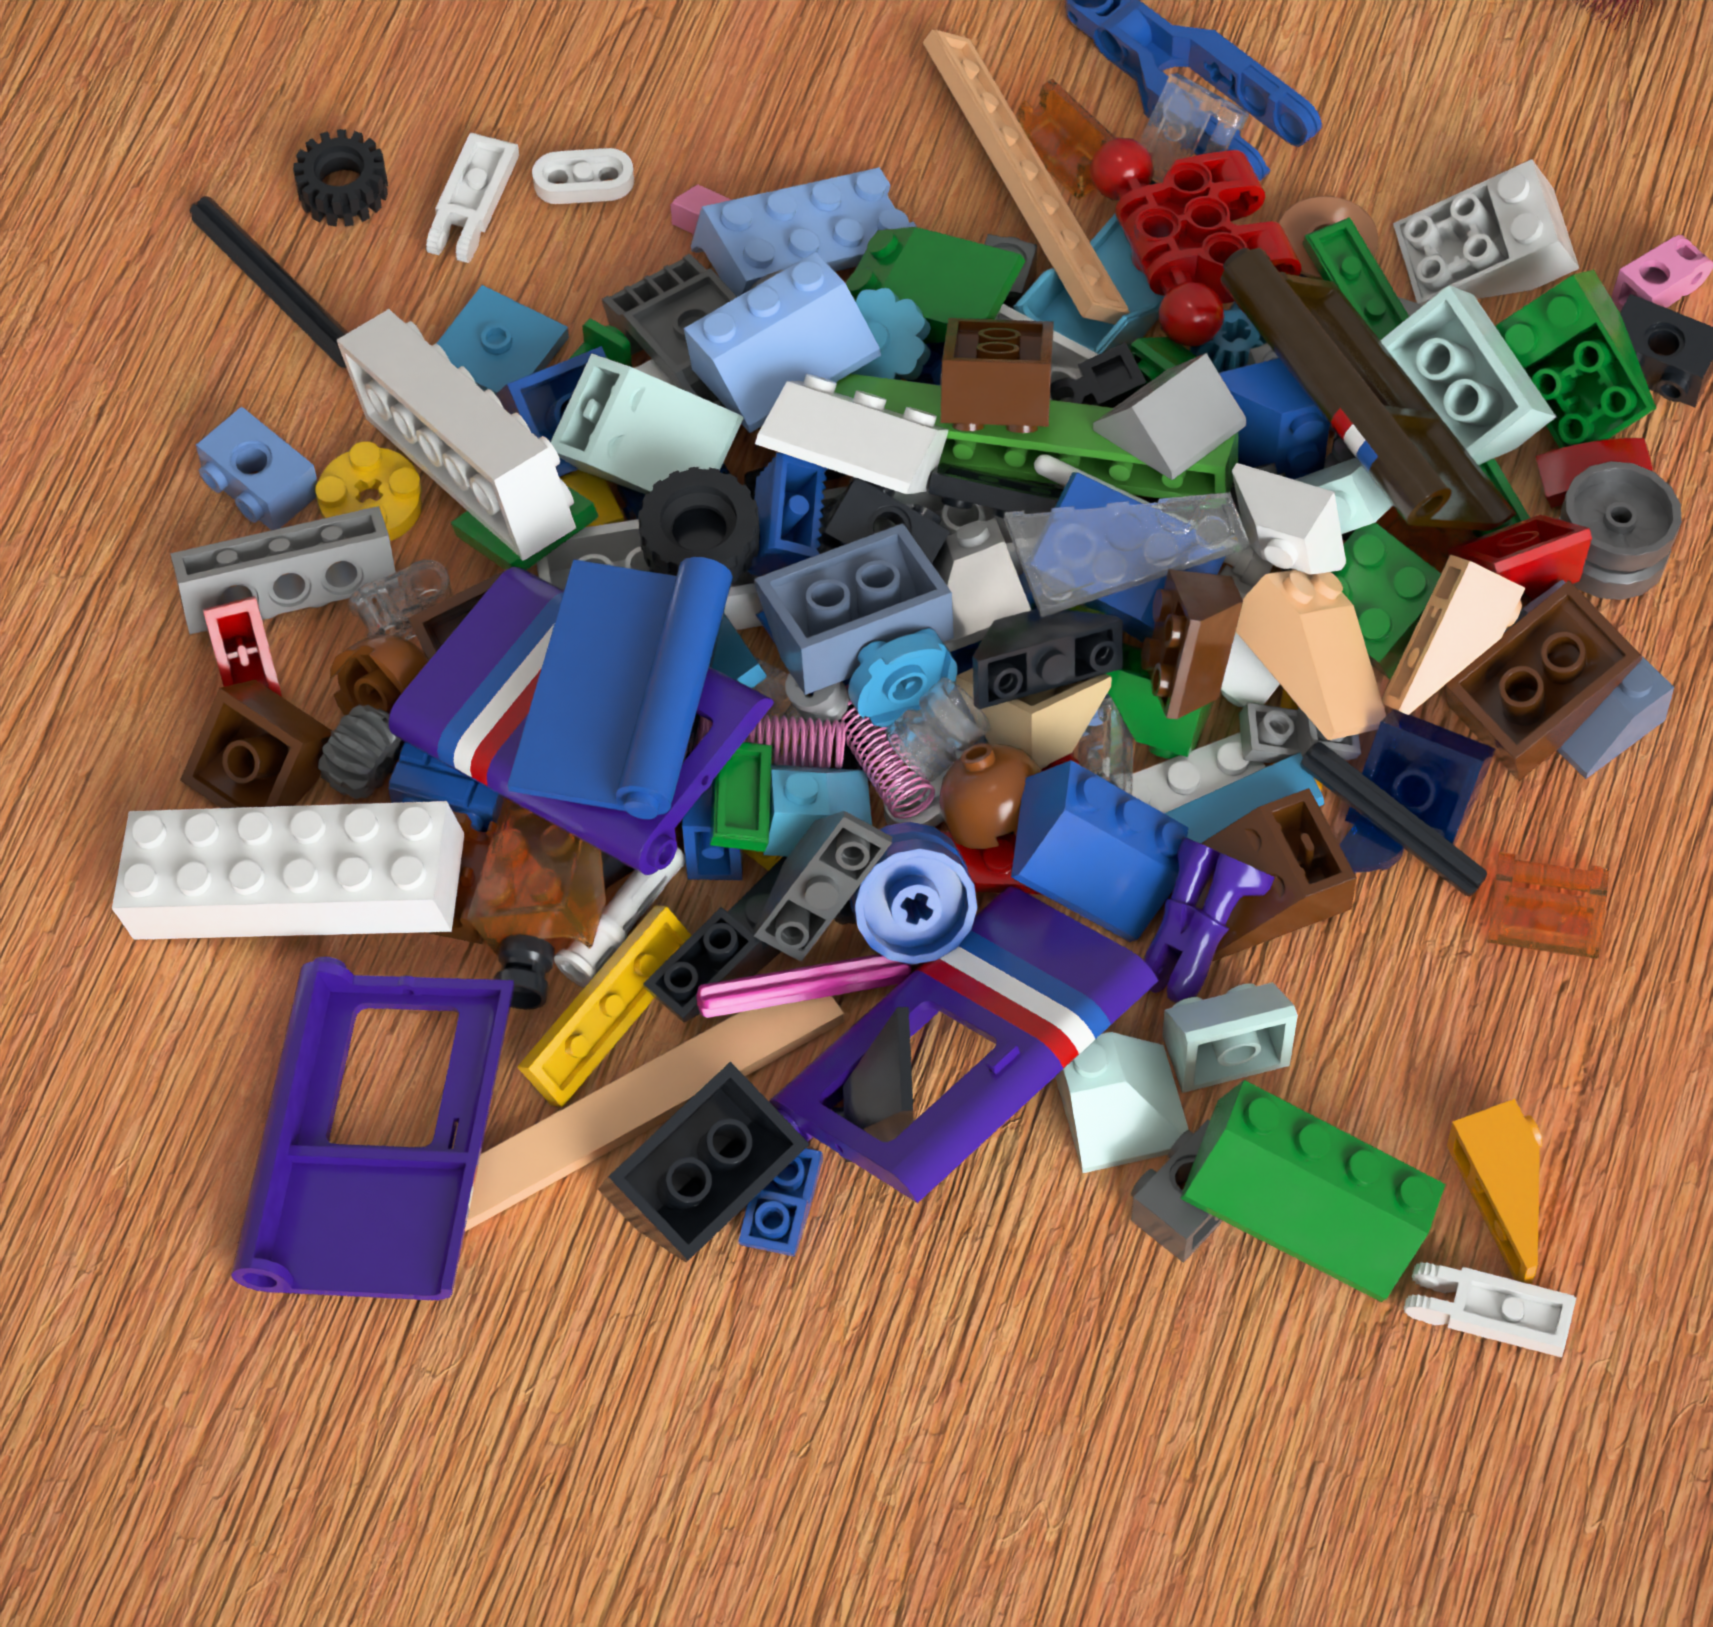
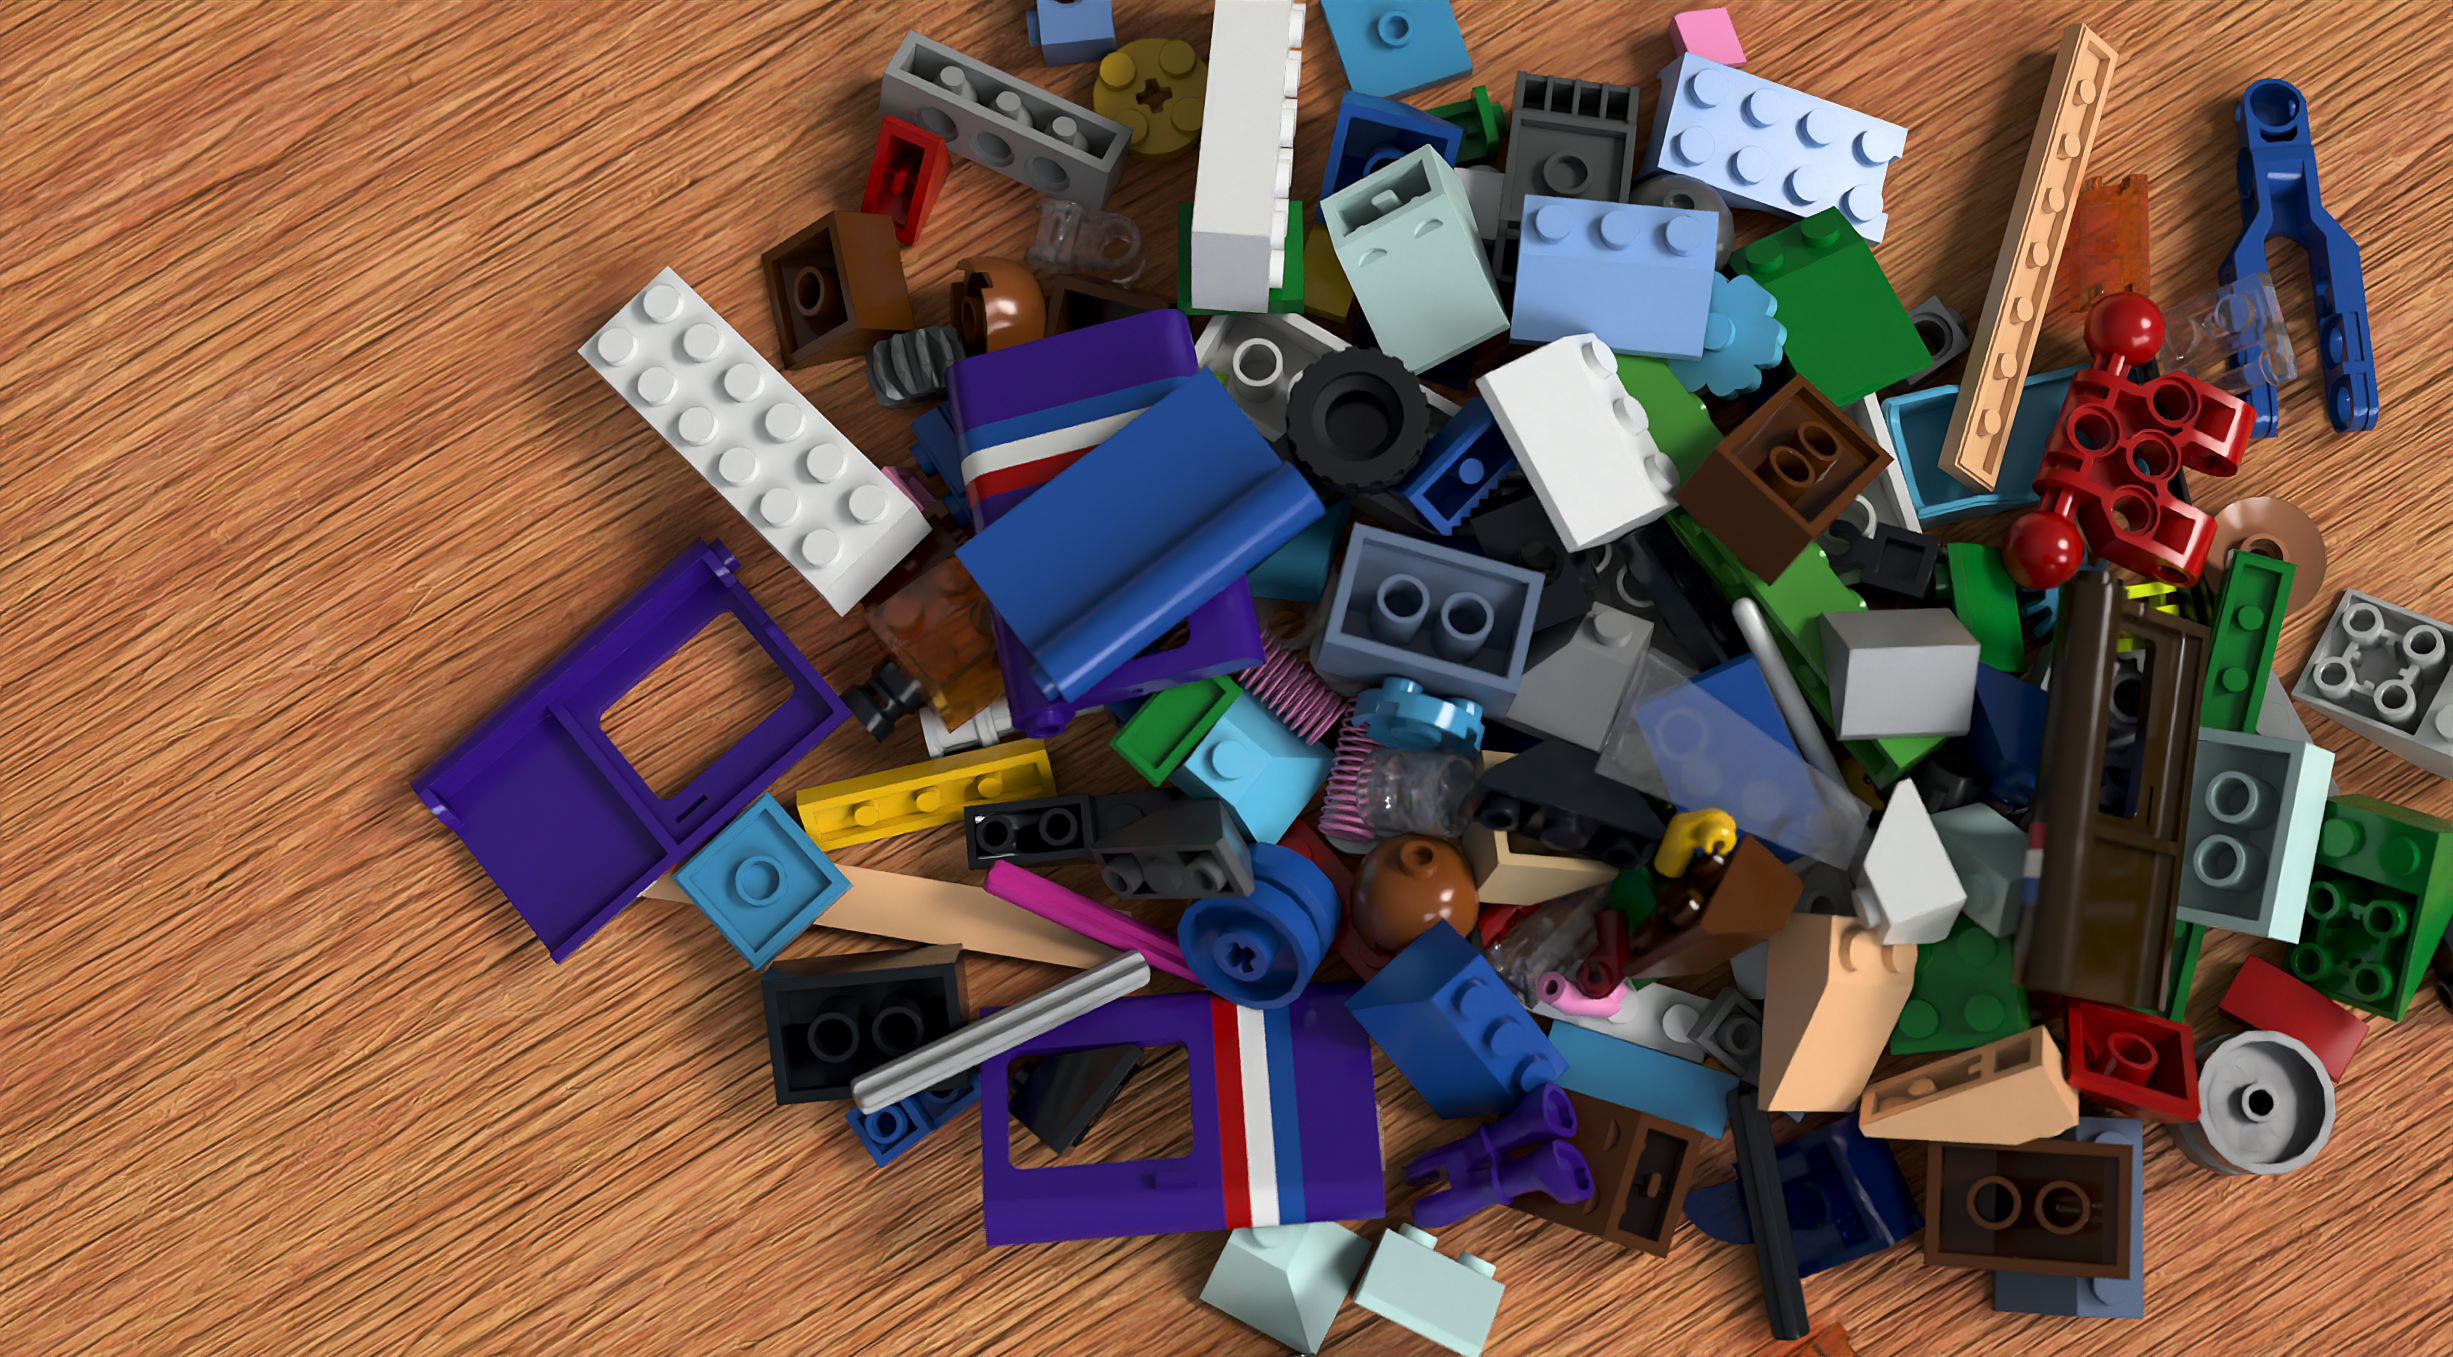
camera: 45 degrees right, 20 degrees up
(546, 1137) = (762, 881): none -> dark azure plate
(799, 1085) = (1000, 1031): none -> light grey axle
(1134, 593) = (1690, 831): none -> yellow arm
(1152, 787) = (1565, 997): none -> bright pink arm
(1153, 739) = (1600, 971): none -> dark red arm

